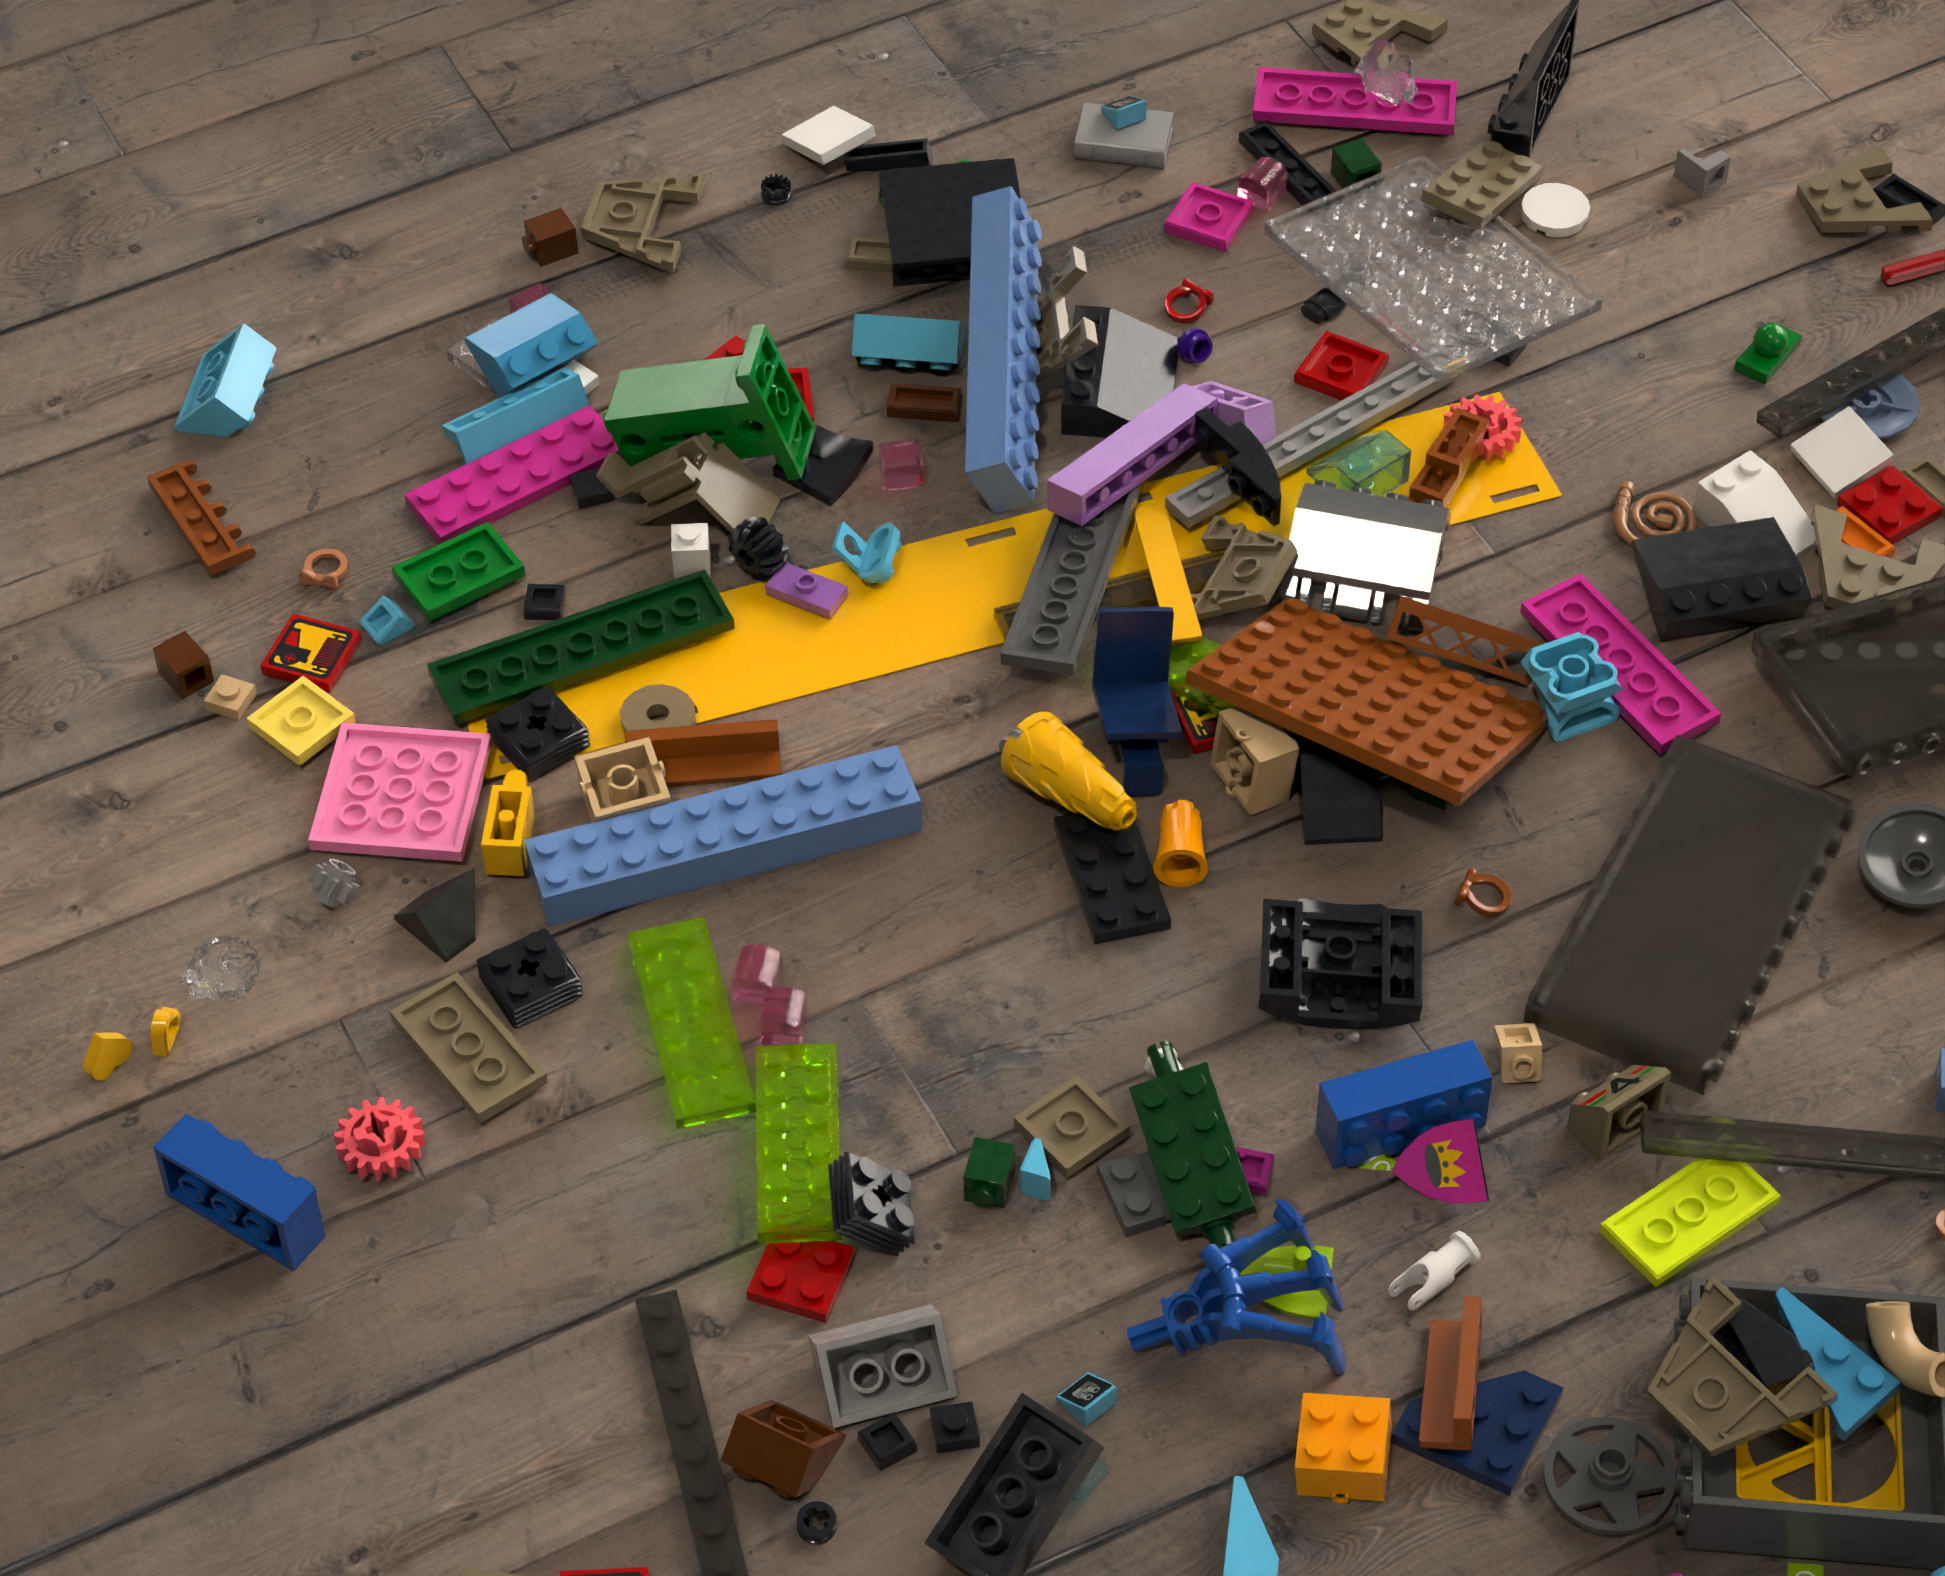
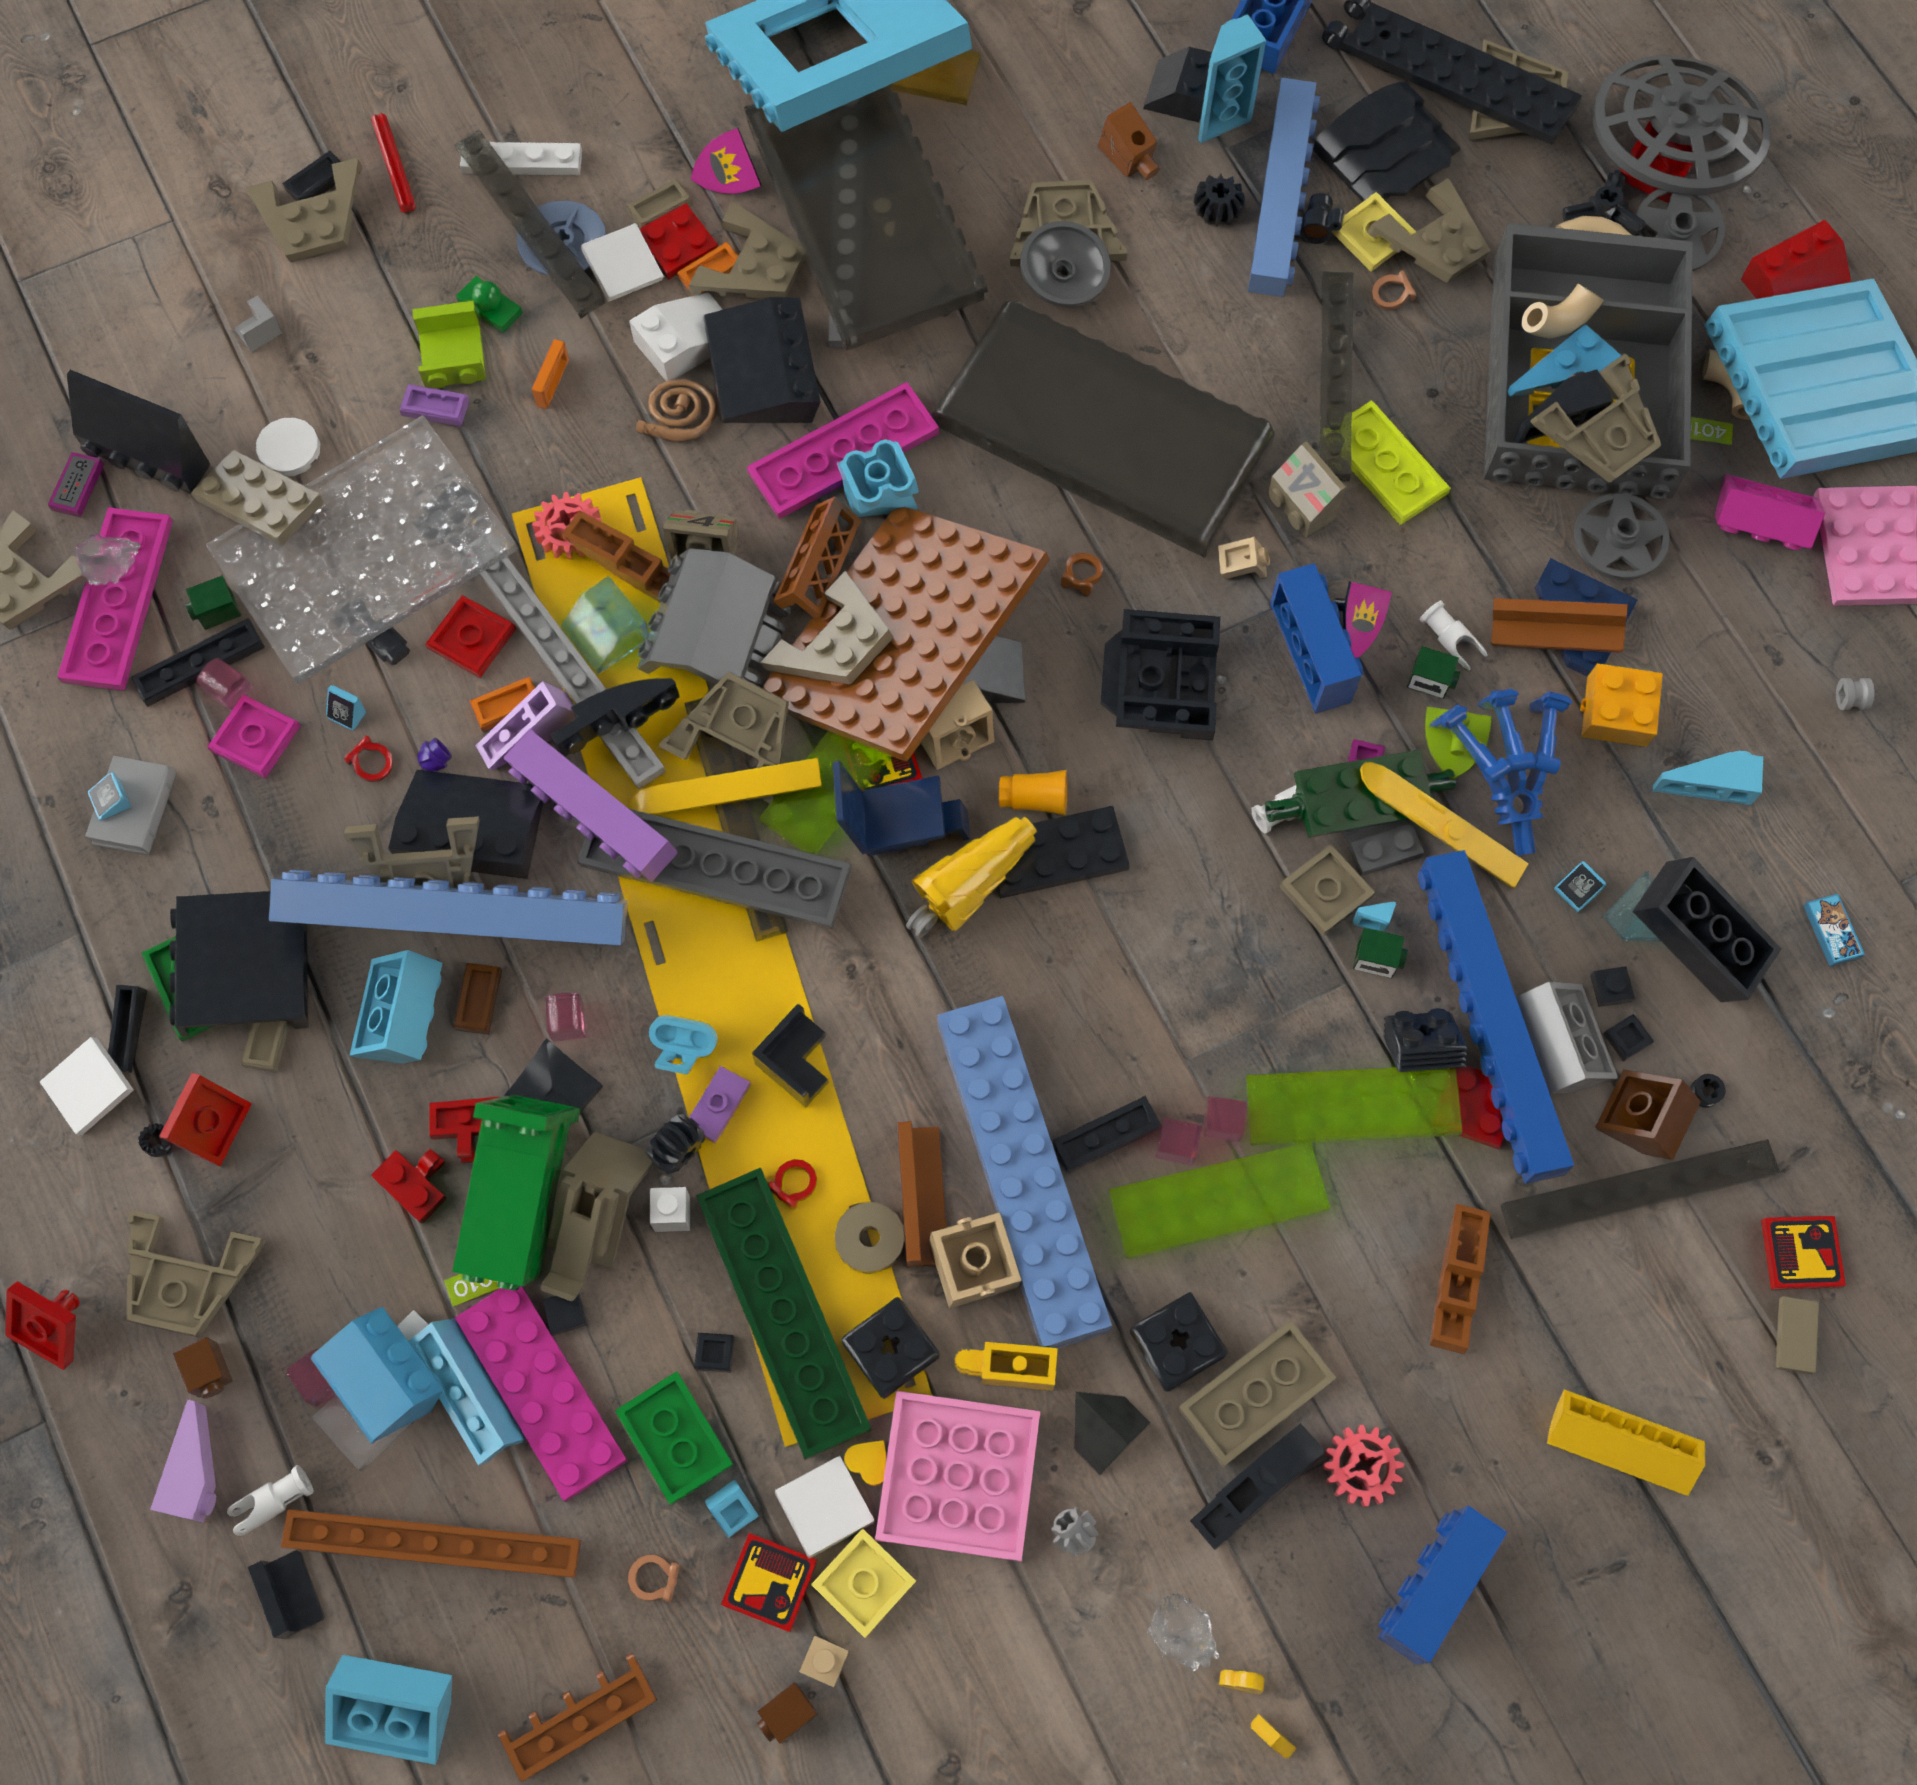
camera: 90 degrees left, 20 degrees up
(336, 311) = (286, 1594): none -> black panel
(370, 1039) = (1257, 1486): none -> black slope
(372, 407) = (431, 1543): none -> dark orange plate
(380, 686) = (824, 1506): none -> white tile
(385, 1399) = (1627, 1443): none -> yellow brick
(424, 716) = (868, 1460): none -> yellow tile
(425, 296) = (270, 1500): none -> white piece
(458, 237) = (188, 1475): none -> lavender slope
(591, 1246) = (1460, 1279): none -> dark orange slope
(597, 126) = (42, 1324): none -> red tile
(714, 638) = (791, 1200): none -> red piece
(767, 912) = (1106, 1134): none -> black plate
(788, 208) = (205, 1119): none -> red tile
(855, 634) = (784, 1056): none -> black panel
(907, 1277) = (1495, 1018): none -> blue brick
(1157, 1235) = (1443, 823): none -> yellow piece
(1246, 276) = (344, 708): none -> slope
(1260, 385) = (497, 704): none -> orange tile
(1353, 653) = (842, 646): none -> wing
(1375, 1243) = (1434, 672): none -> dark green brick
(1482, 535) = (700, 531): none -> dark tan slope
(1485, 61) = (76, 484): none -> tile
(1624, 315) = (435, 405): none -> medium lavender plate
(1679, 402) = (550, 374): none -> orange tile
(1704, 326) = (450, 344): none -> lime panel

